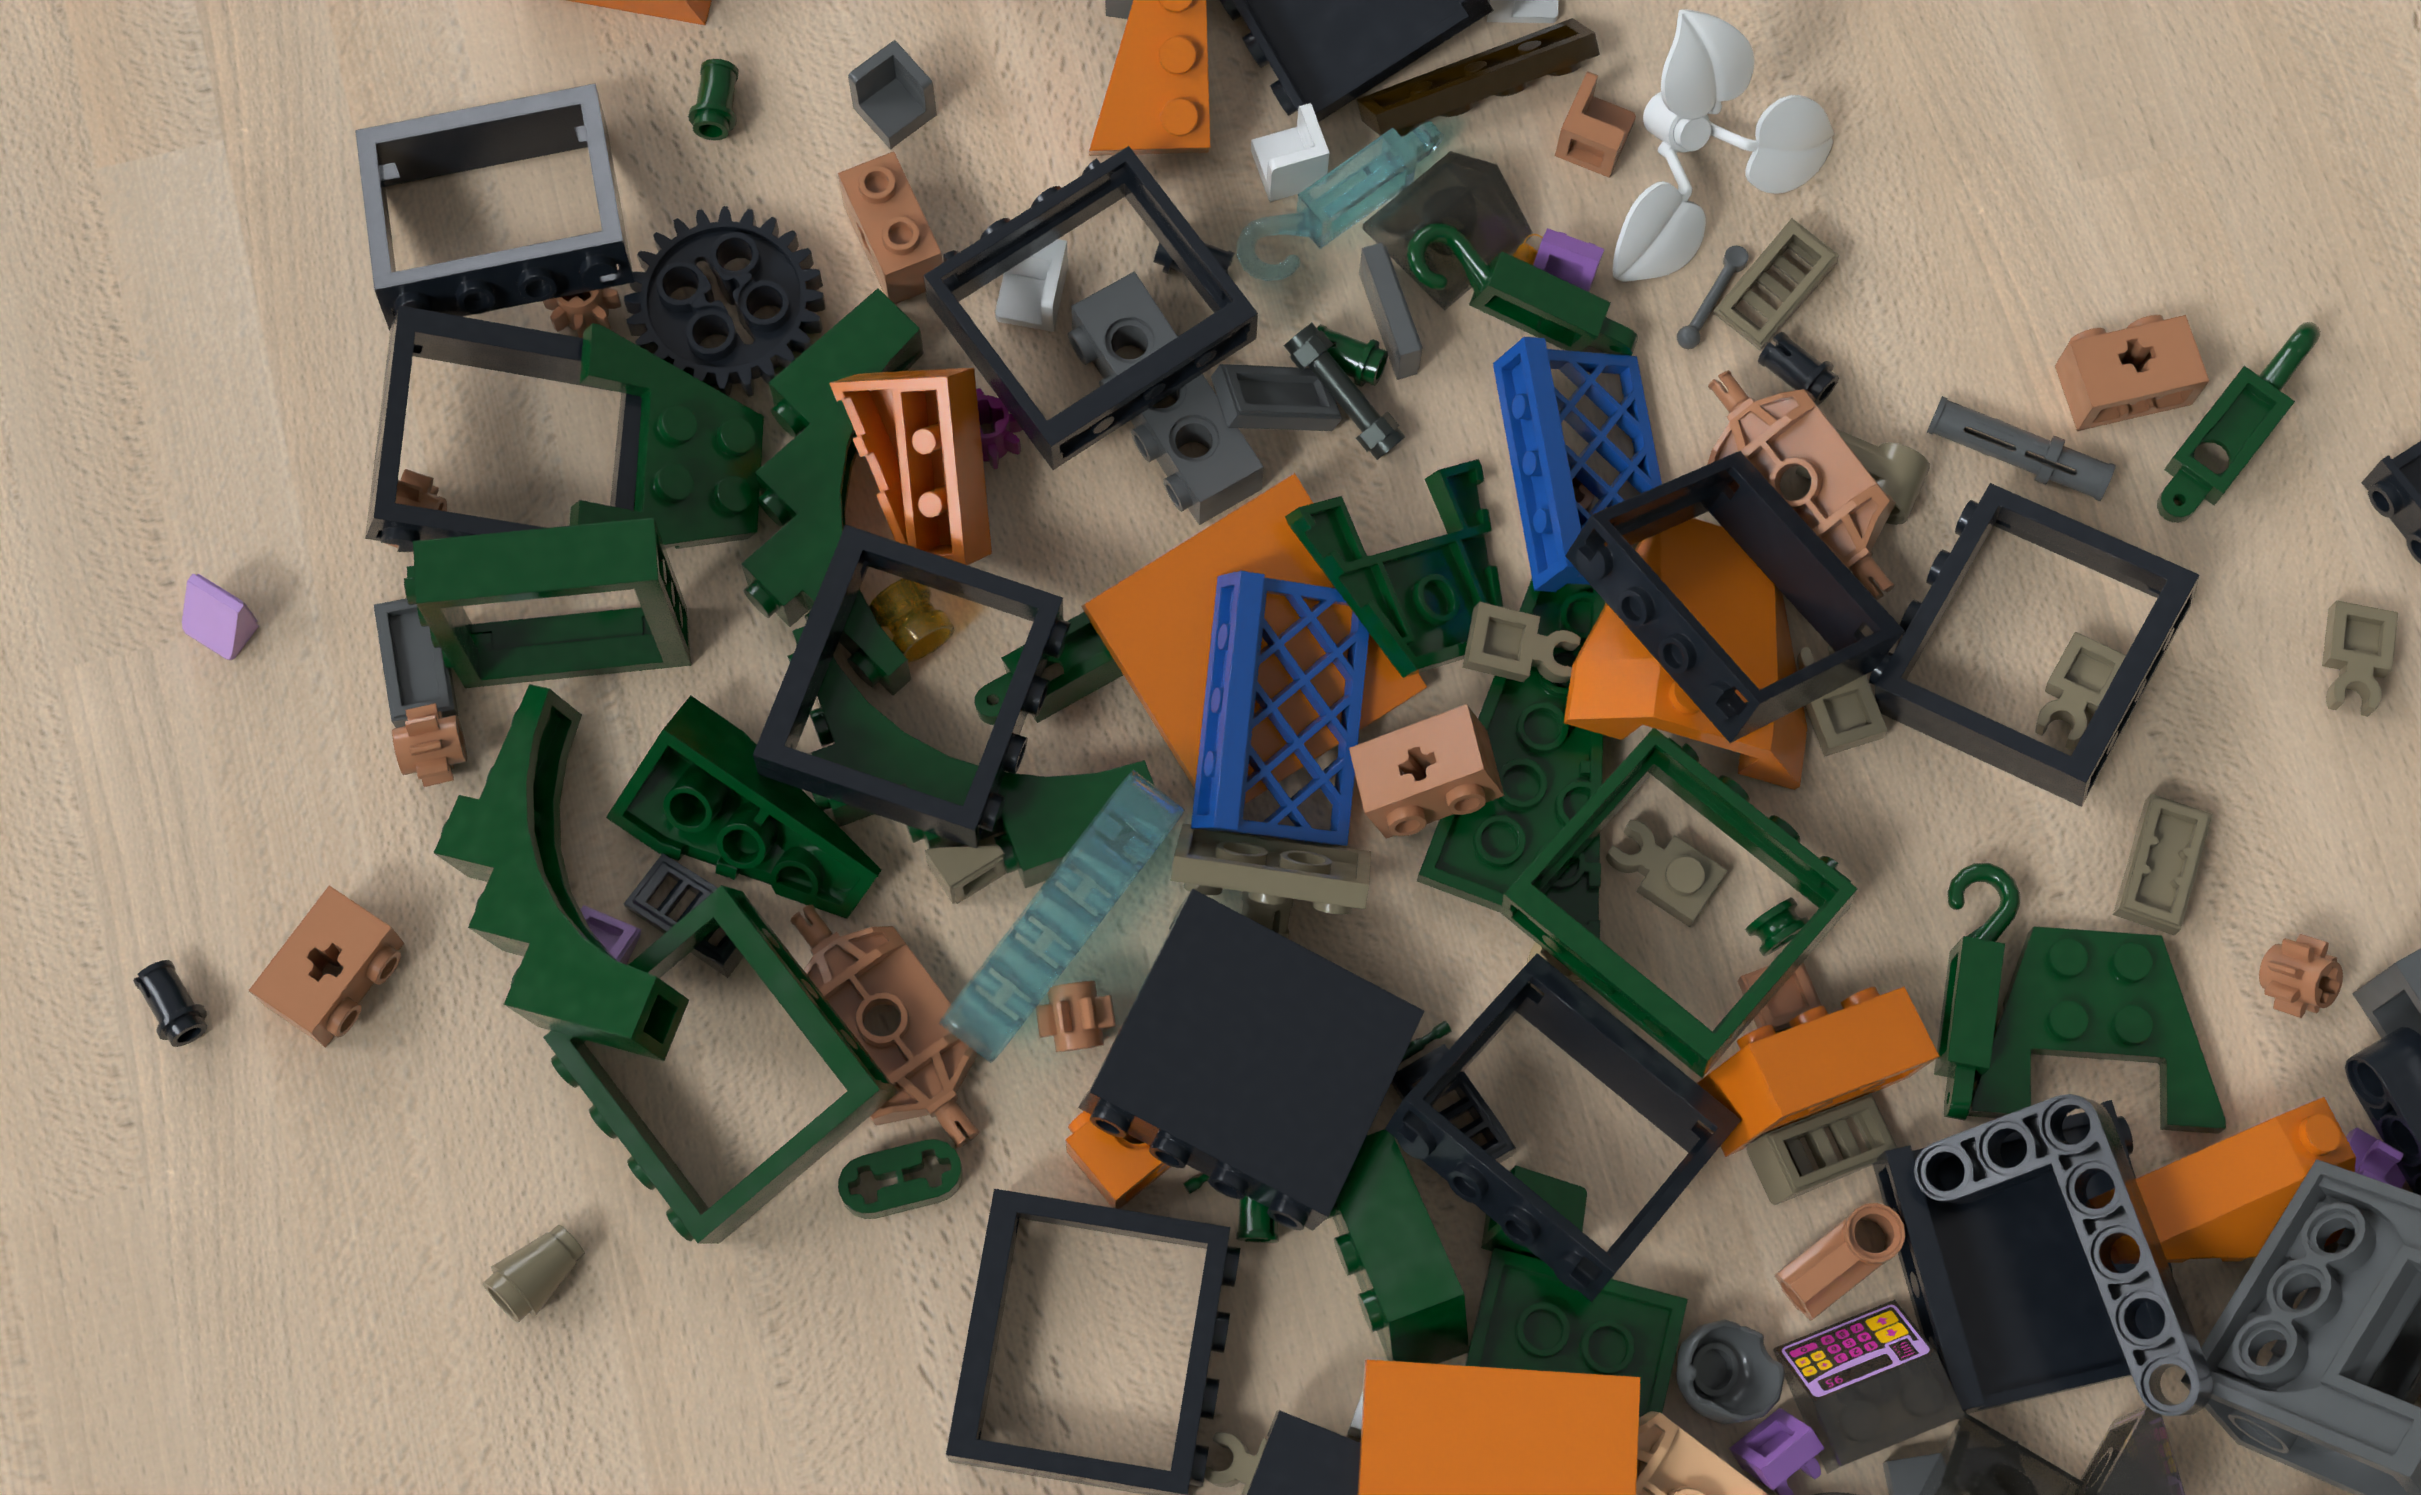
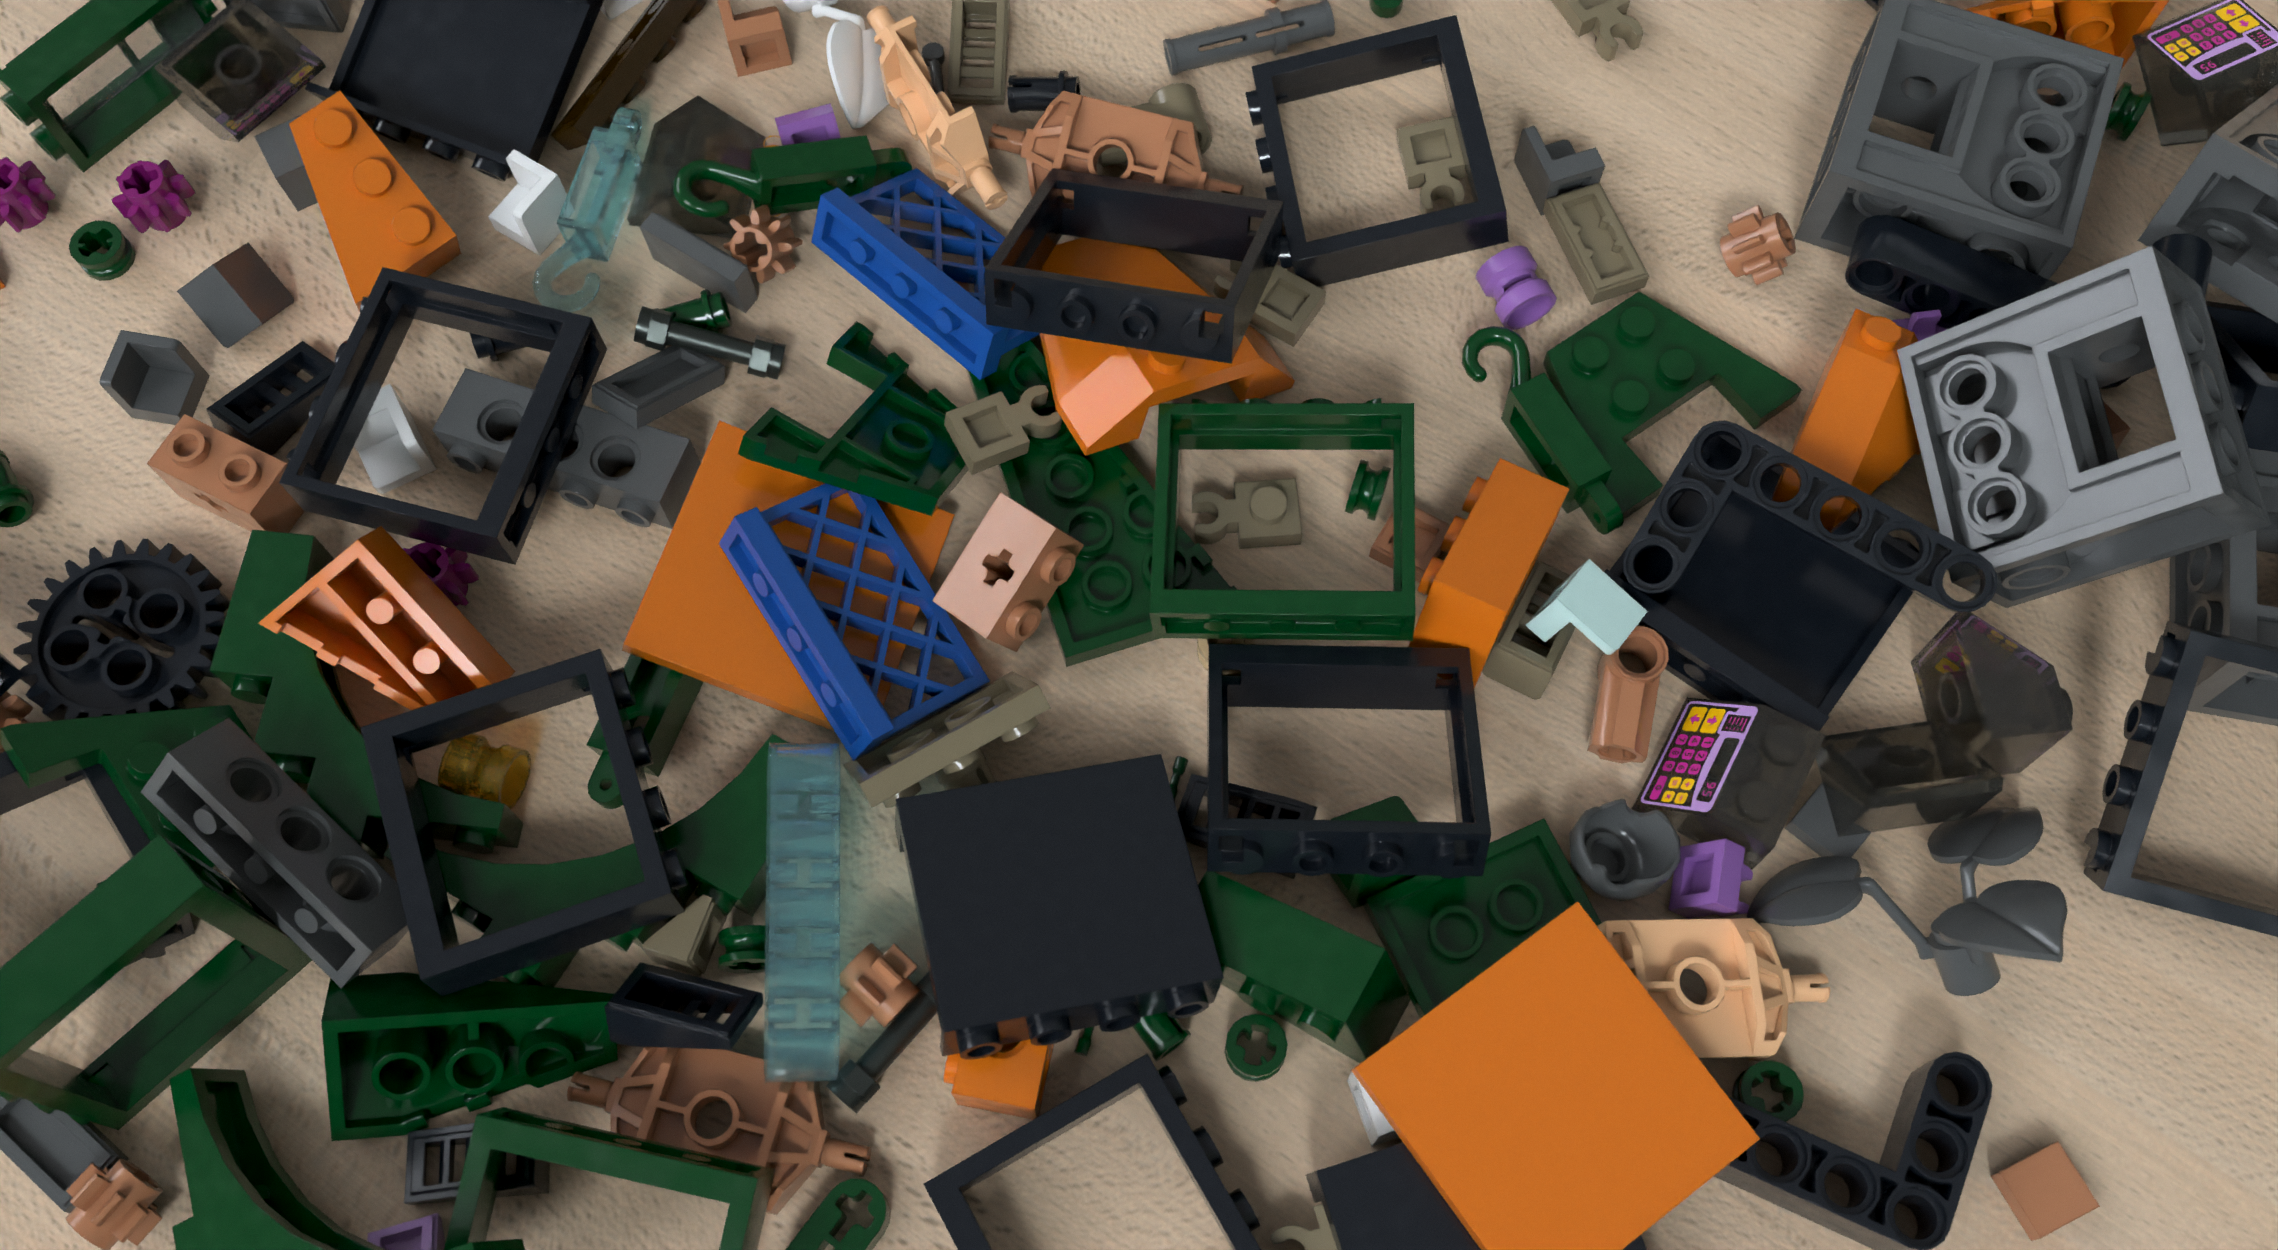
camera: 35 degrees left, 5 degrees down
(724, 575) = (280, 850): none -> dark grey brick
(905, 891) = (649, 1004): none -> black slope
(975, 198) = (287, 414): none -> black slope
(998, 909) = (743, 949): none -> dark green bush
(1004, 64) = (236, 295): none -> dark grey panel
(1006, 1076) = (858, 1080): none -> pearl dark grey bar
(1338, 1295) = (1275, 1041): none -> dark green bush
(1453, 334) = (750, 241): none -> nougat gear
(1672, 365) = (950, 138): none -> light nougat plate
(1865, 1167) = (1593, 606): none -> light aqua panel
(2055, 851) = (1515, 287): none -> medium lavender wheel
(2188, 770) = (1554, 167): none -> dark grey panel

